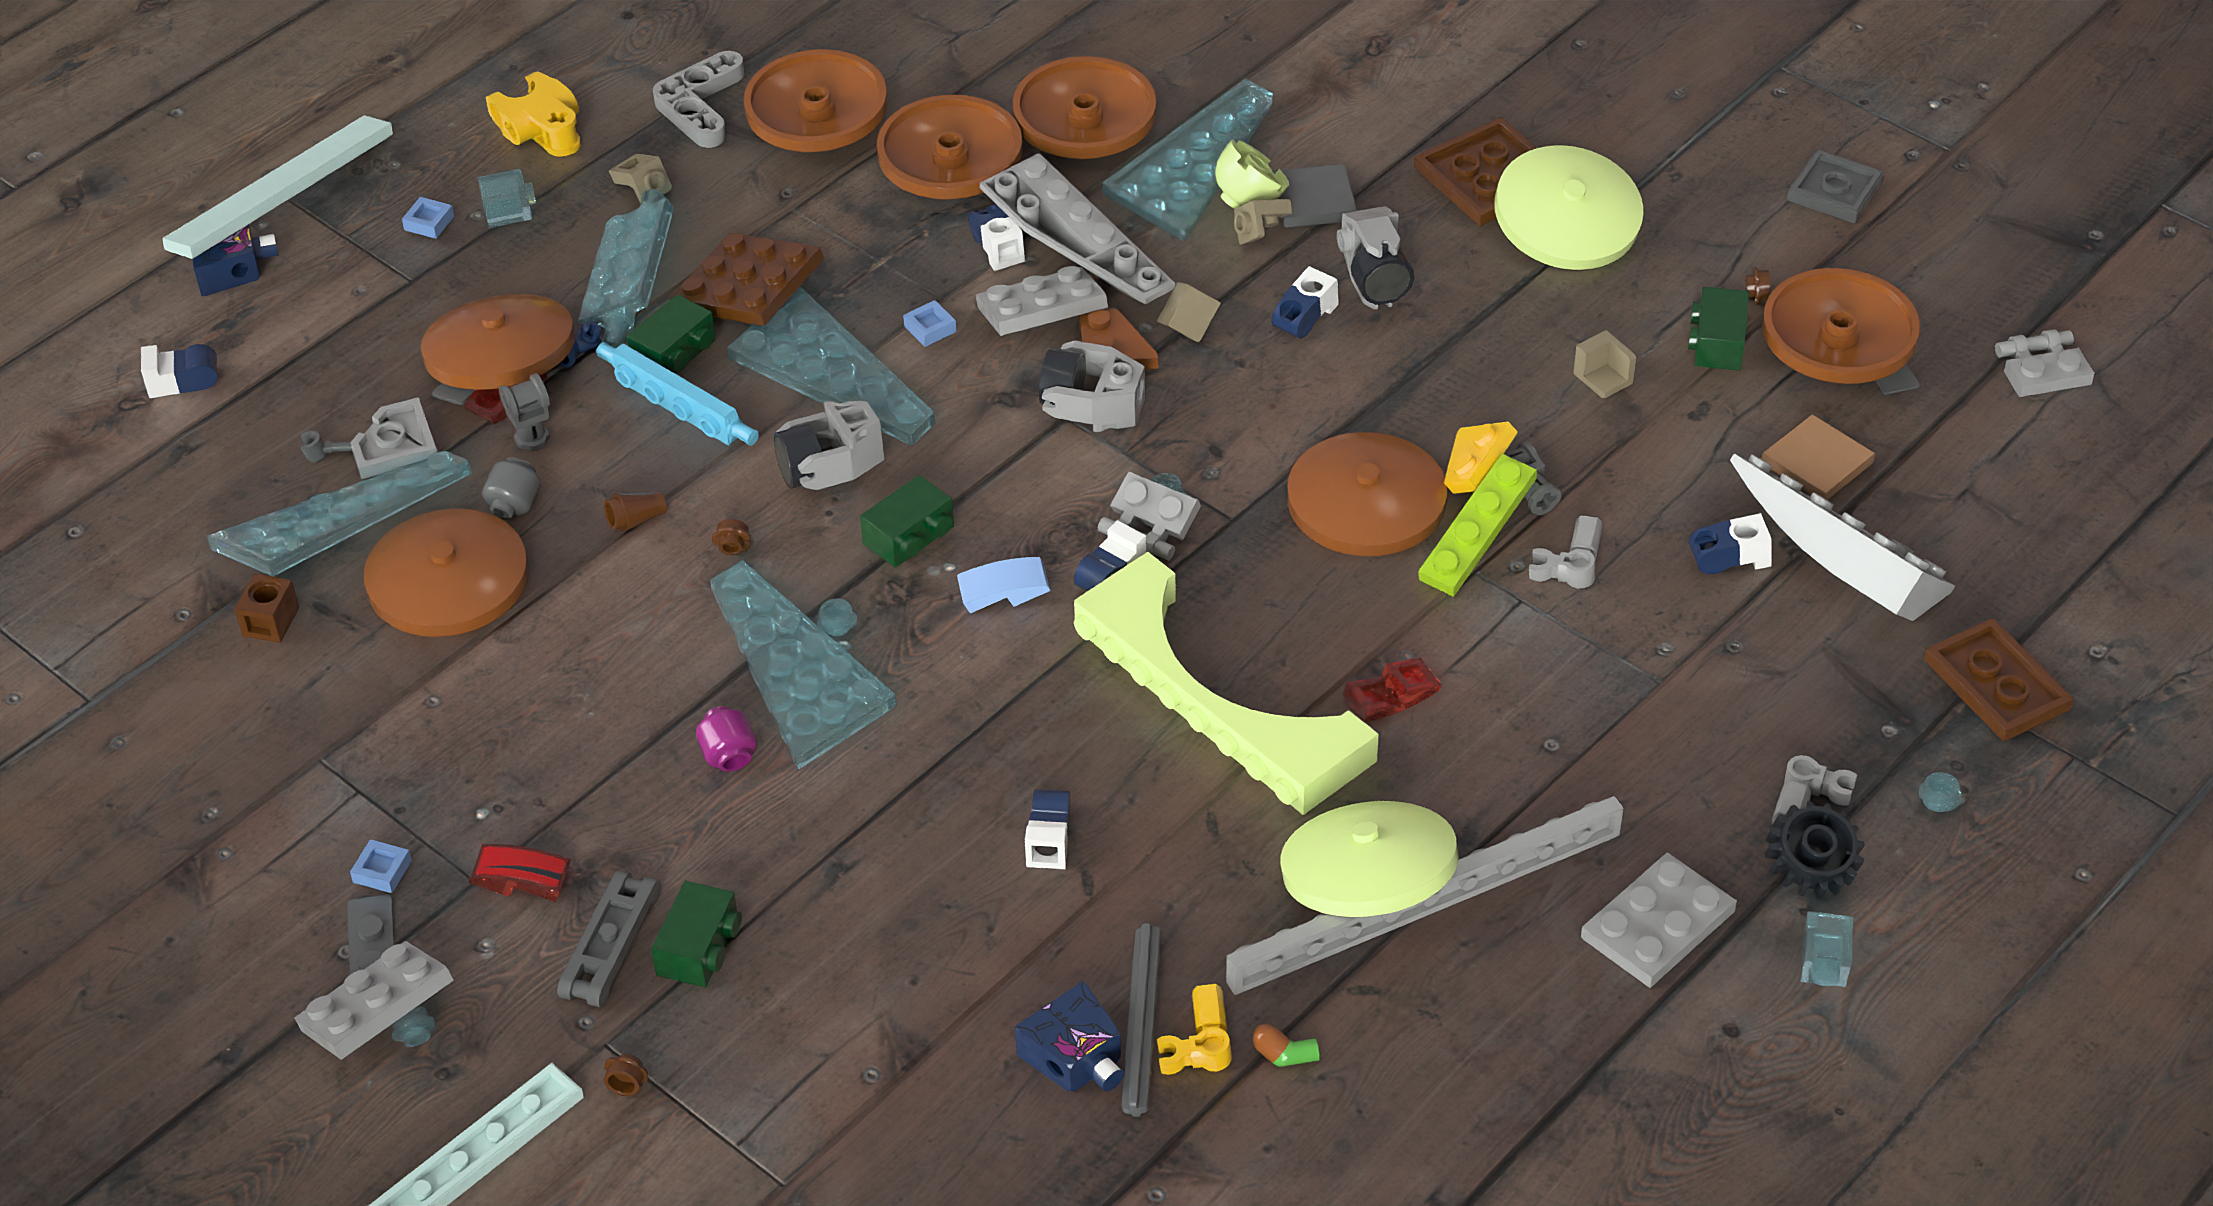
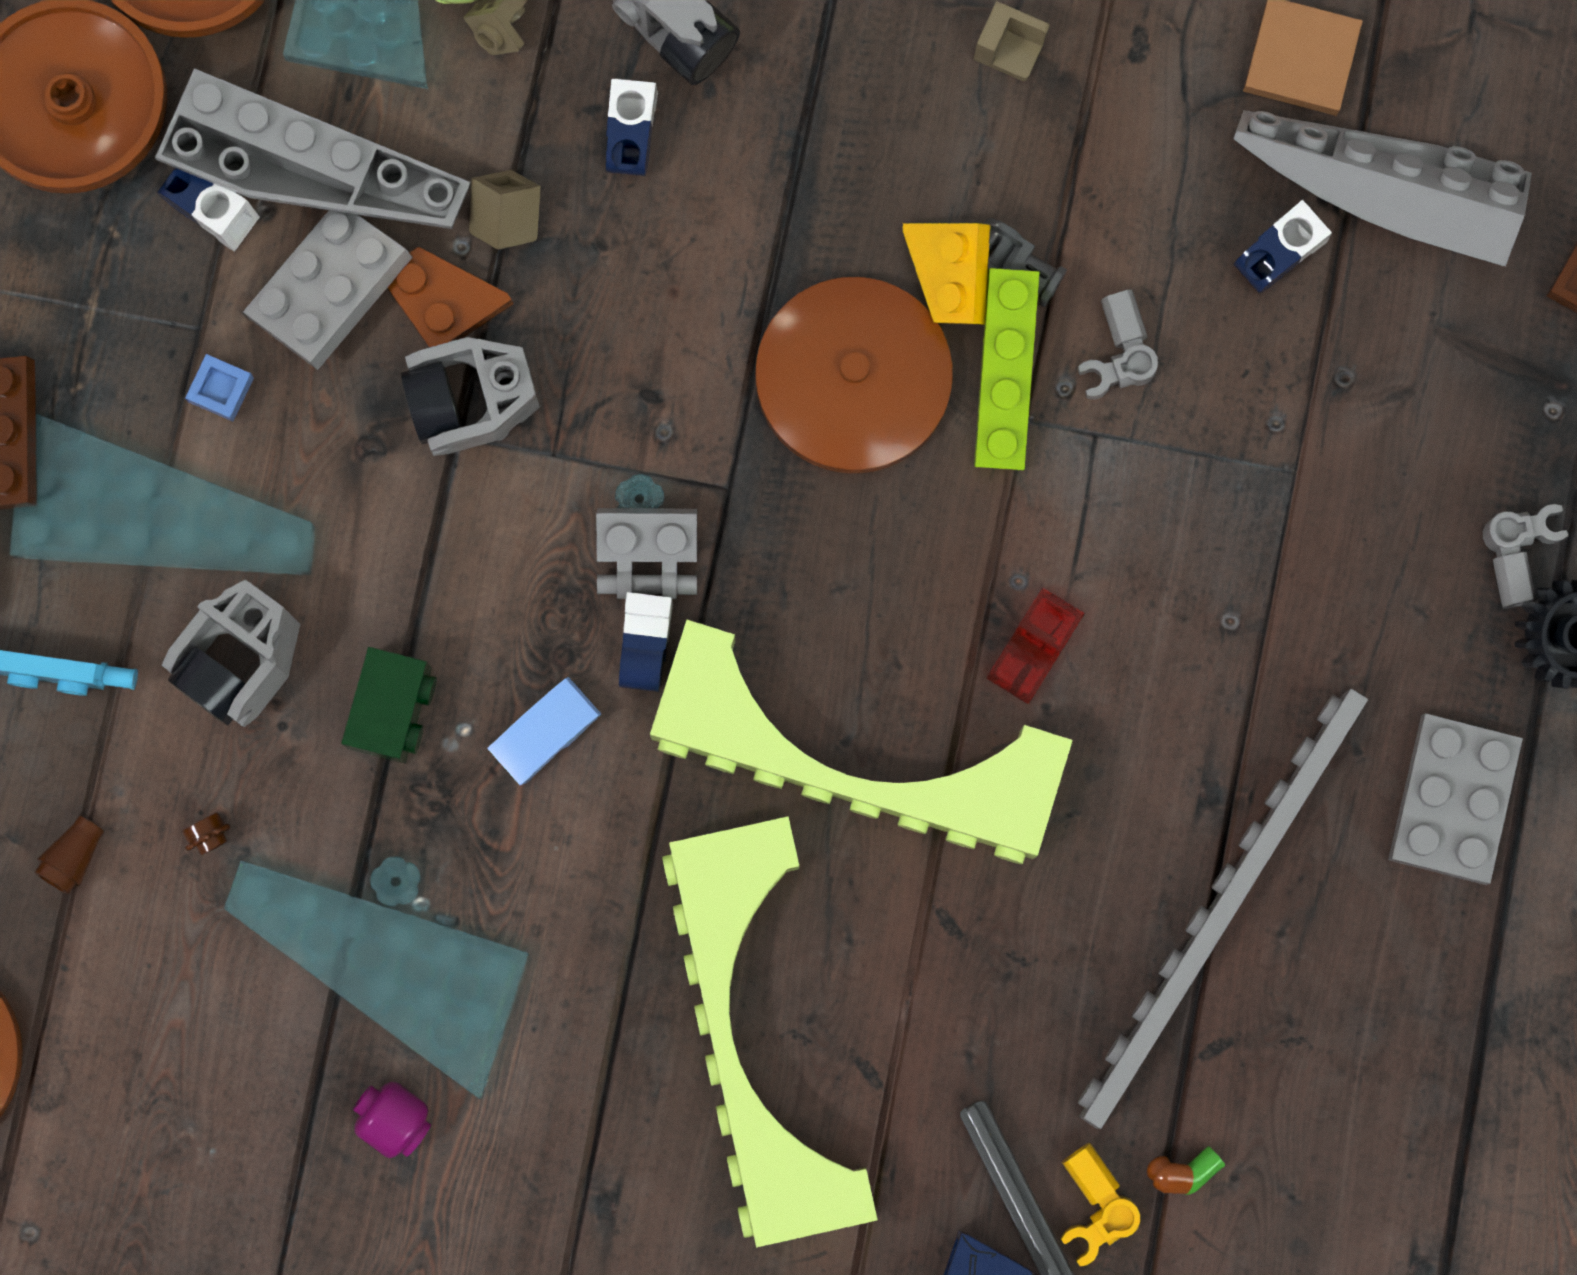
camera: 35 degrees left, 35 degrees up
(974, 901) = (785, 1183): none -> yellowish green arch
(1048, 827) = (796, 1036): leg -> none
(1369, 858) = (1150, 906): yellowish green dish -> none

